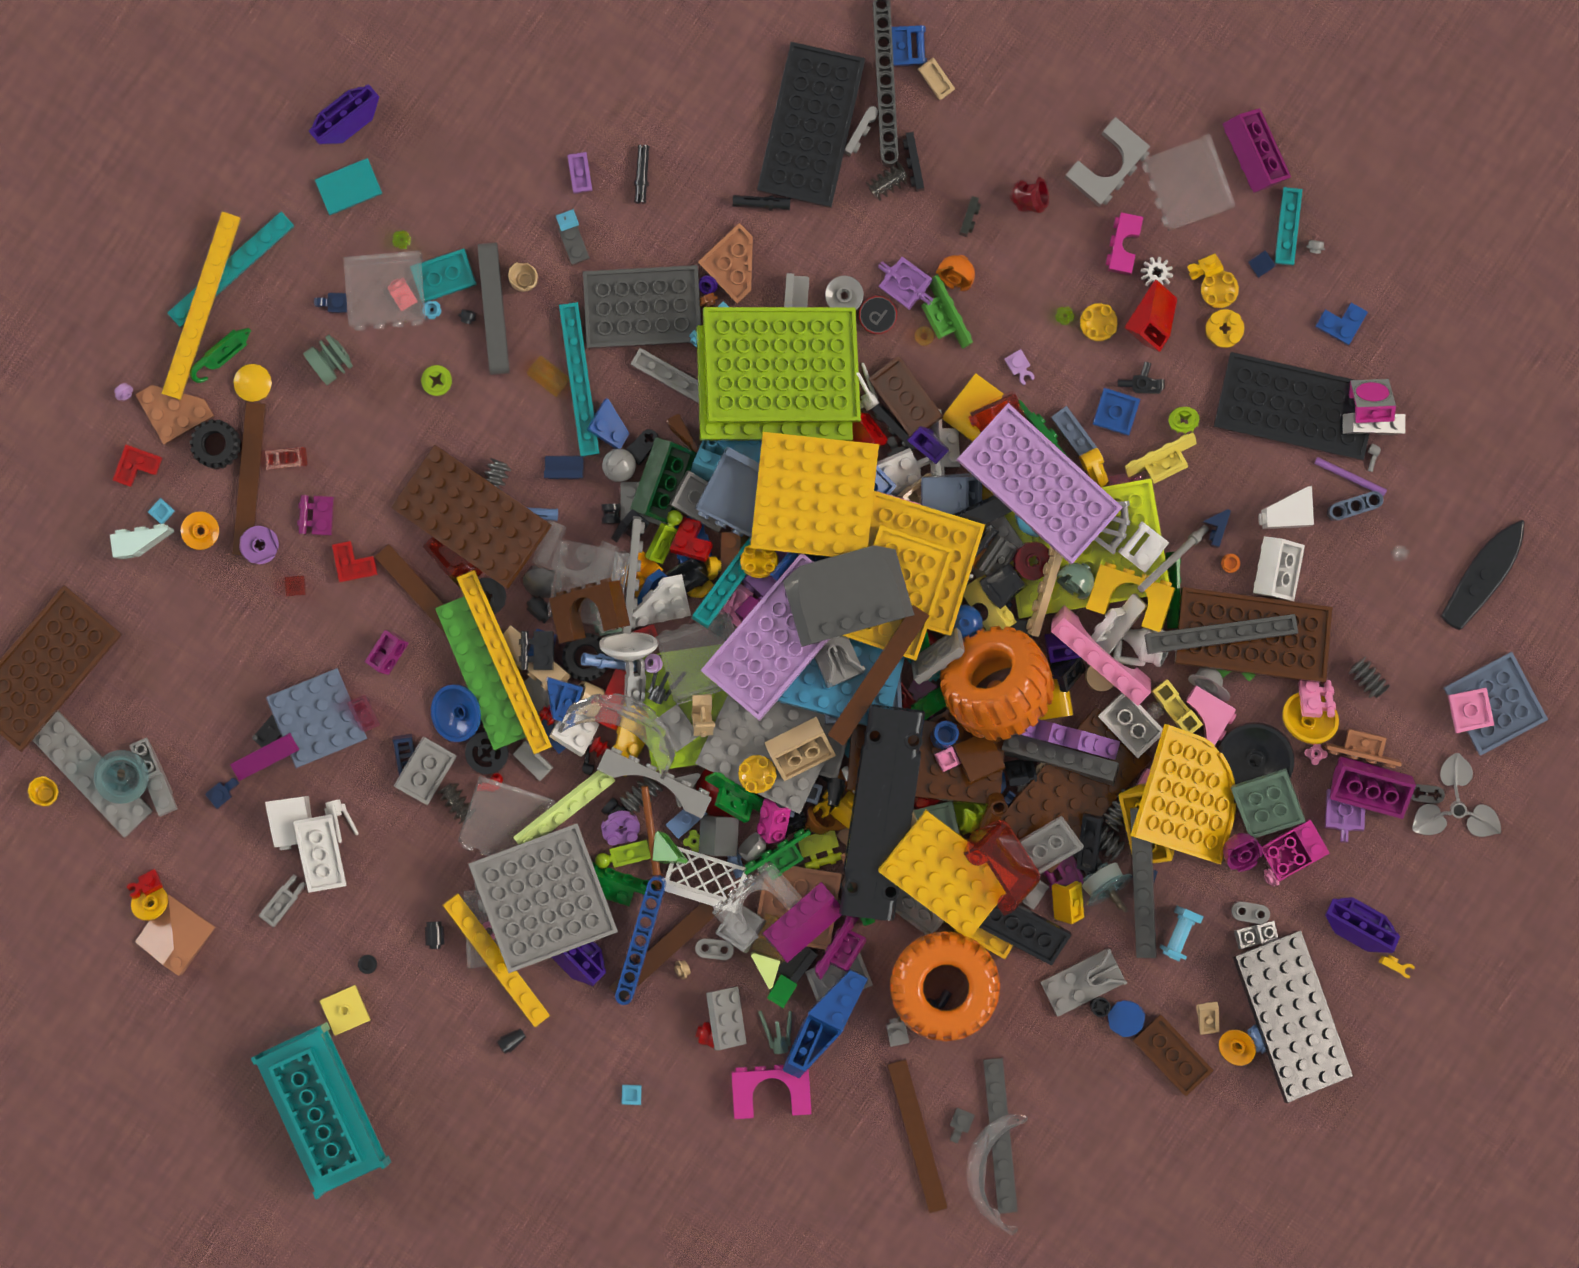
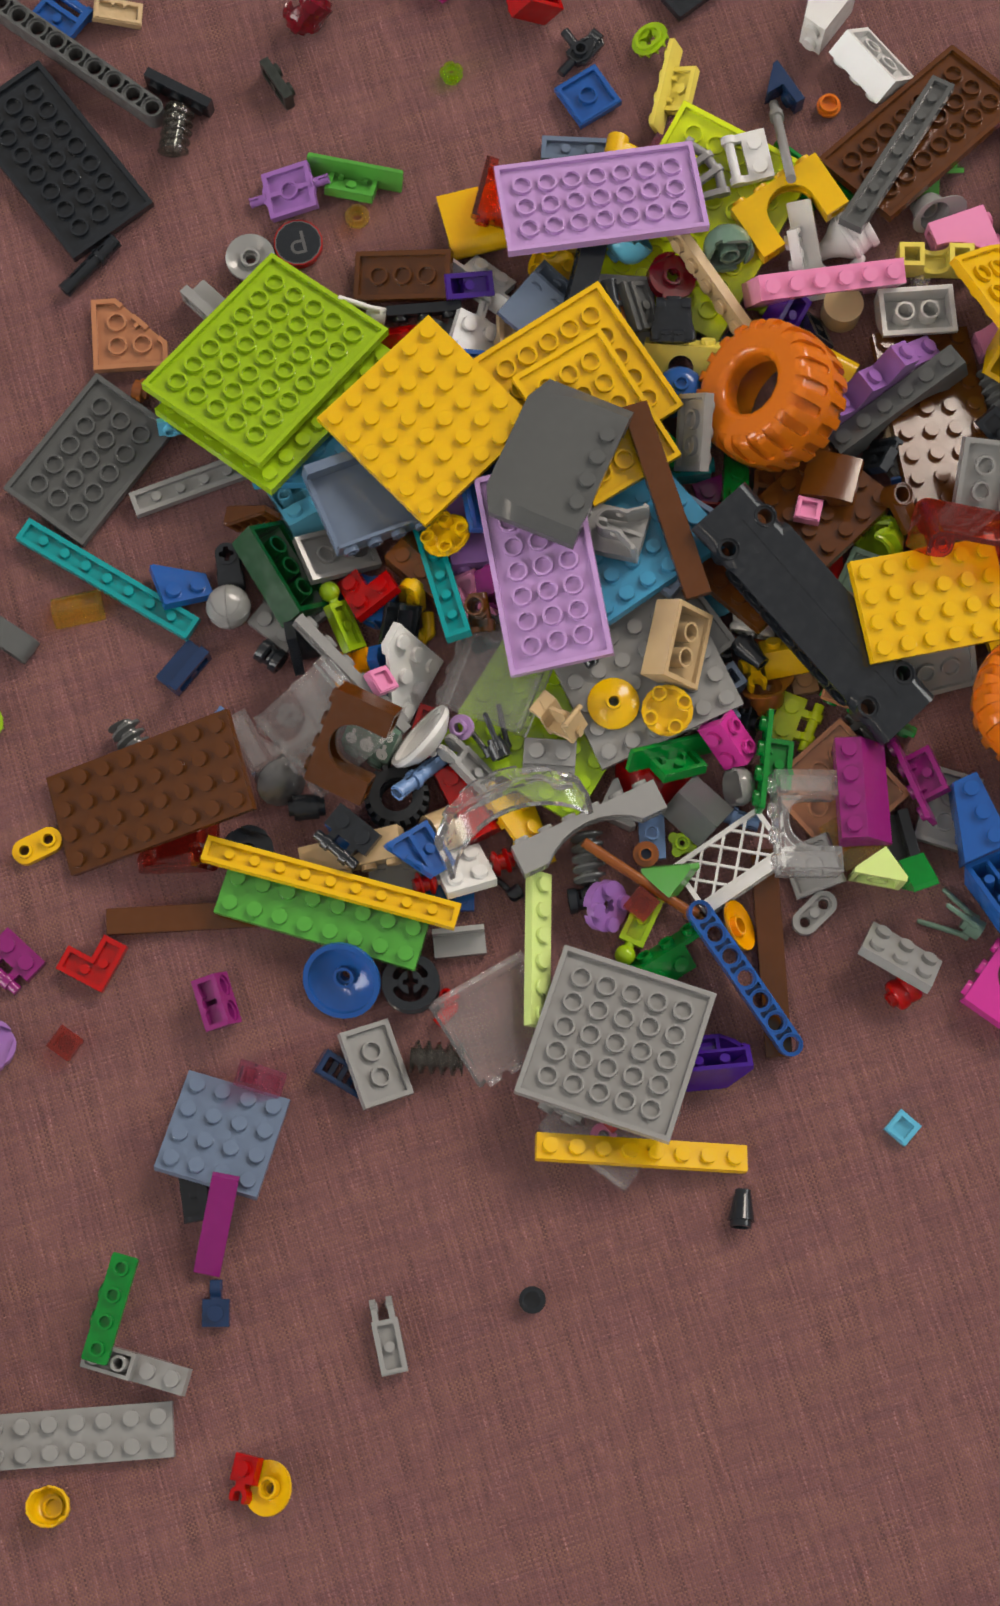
camera: 45 degrees left, 10 degrees down
(121, 777) = (104, 1401): clear light blue piece -> none
(172, 737) = (110, 1308): none -> green bracket
(175, 936) = (328, 1490): nougat slope -> none
(281, 818) = (309, 1255): white slope -> none
(319, 853) = (369, 1249): white plate -> none
(321, 1109) = (653, 1482): teal piece -> none
(335, 808) = (335, 1196): white plant -> none
(345, 1010) = (562, 1366): light yellow plate -> none
(392, 473) = (37, 847): none -> yellow plate
(434, 935) = (559, 1199): black brick -> none
(636, 847) = (641, 904): none -> clear red plate
(641, 595) = (381, 681): none -> bright pink tile
(670, 912) = (739, 925): none -> light orange dish
(673, 821) = (640, 860): none -> dark orange plate
(682, 969) = (809, 963): tan plate -> none
(704, 287) = (124, 386): dark purple plate -> none
(723, 623) = (481, 619): none -> reddish brown plate
(744, 731) = (613, 716): none -> yellow dish
(861, 130) = (104, 117): light grey hinge -> none
(944, 735) = (781, 491): blue piece -> none
(957, 272) = (322, 133): orange cylinder -> none
(1017, 364) = (461, 152): lavender plate -> none
(1098, 322) = (485, 46): yellow dish -> none

